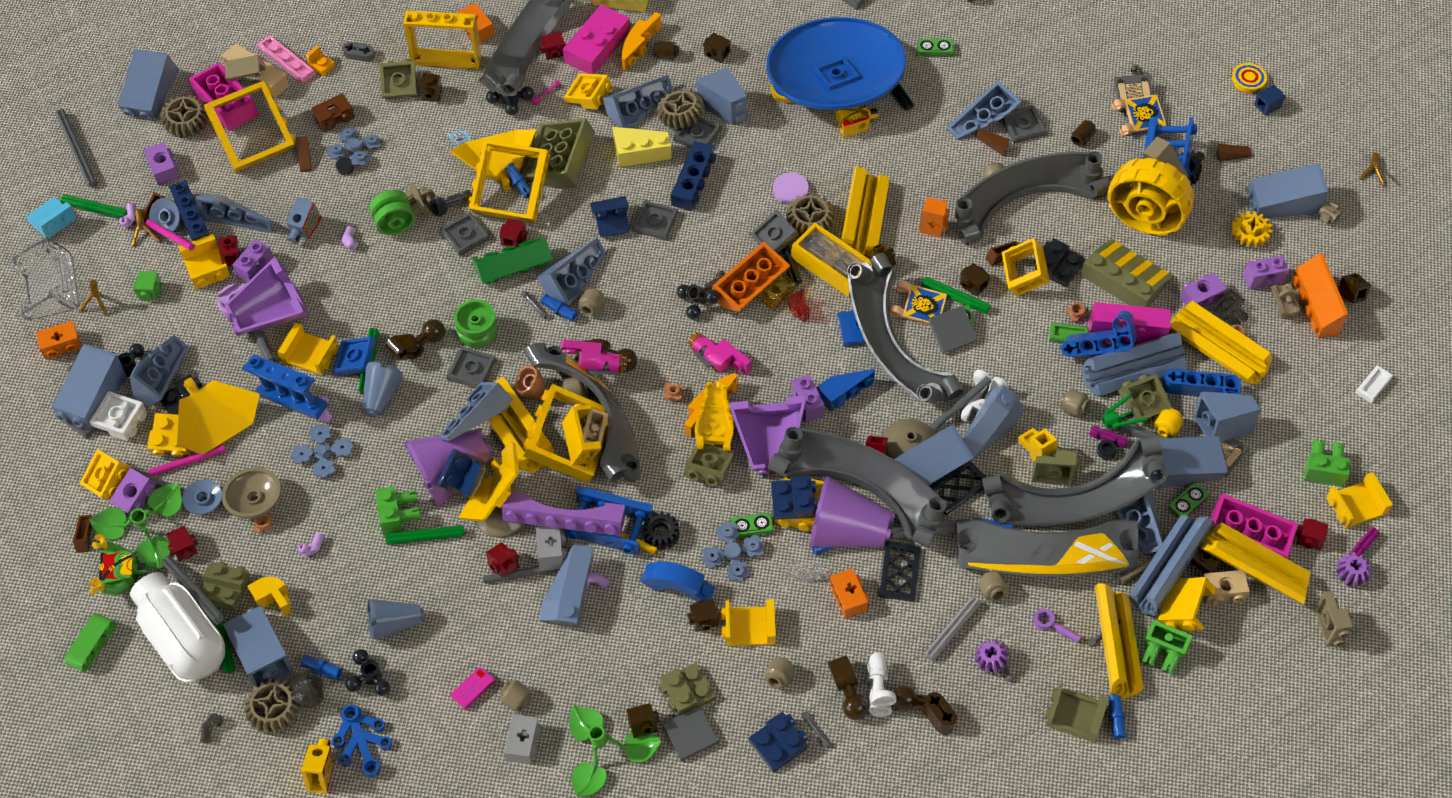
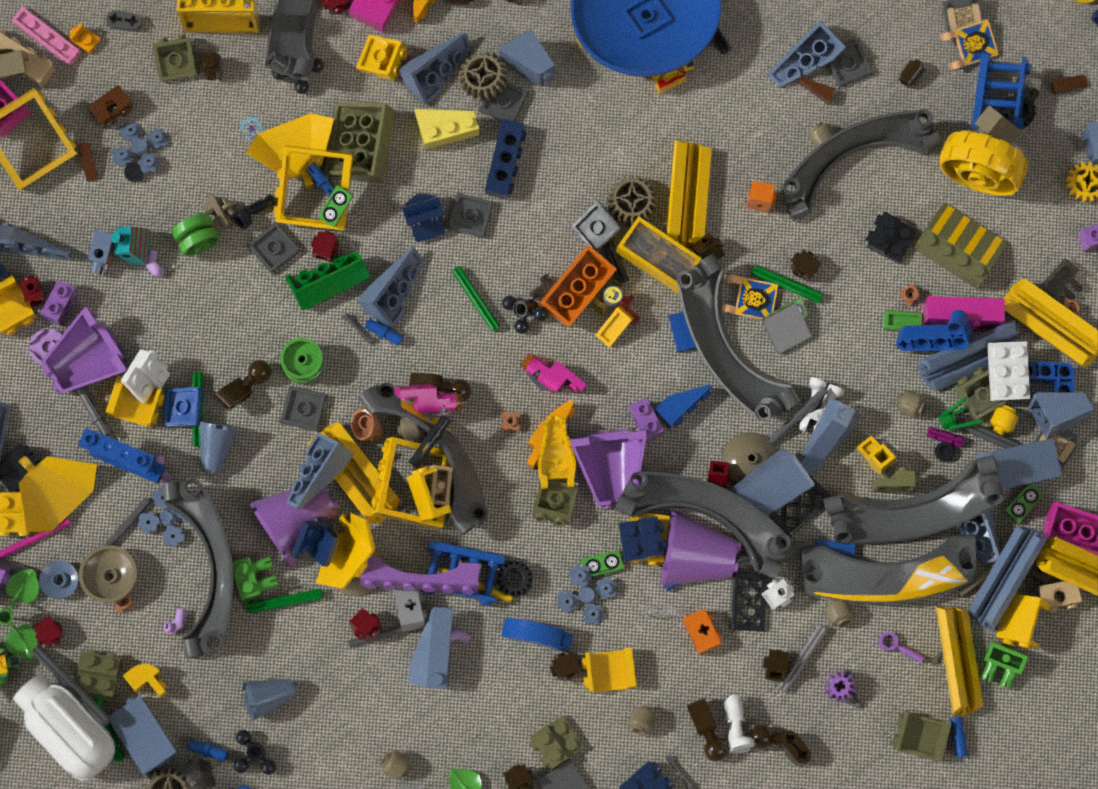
camera: 10 degrees left, 20 degrees up
(284, 451) = (128, 522): none -> dark grey bar
(321, 322) = (145, 375): none -> white plate
(330, 217) = (132, 244): none -> teal torso
(353, 445) = (203, 517): none -> dark grey panel
(472, 688) = (354, 758): dark pink tile -> none
(527, 194) = (335, 206): none -> tile
(535, 101) = (325, 71): dark pink hinge -> none
(592, 302) = (417, 324): dark tan head -> none
(593, 384) = (415, 459): none -> black pin
(652, 287) = (476, 299): none -> green axle
(783, 316) = (614, 326): none -> yellow tile
(784, 287) = (612, 295): none -> tile
(789, 186) = (608, 165): lavender tile -> none
(925, 630) = (777, 665): none -> dark brown brick
(930, 562) = (772, 596): none -> white brick
(995, 254) = (833, 228): reddish brown piece -> none
(1029, 281) = (842, 253): yellow window -> none
(1173, 376) = (1008, 371): none -> white plate
(1204, 291) = (1045, 255): medium lavender brick -> none

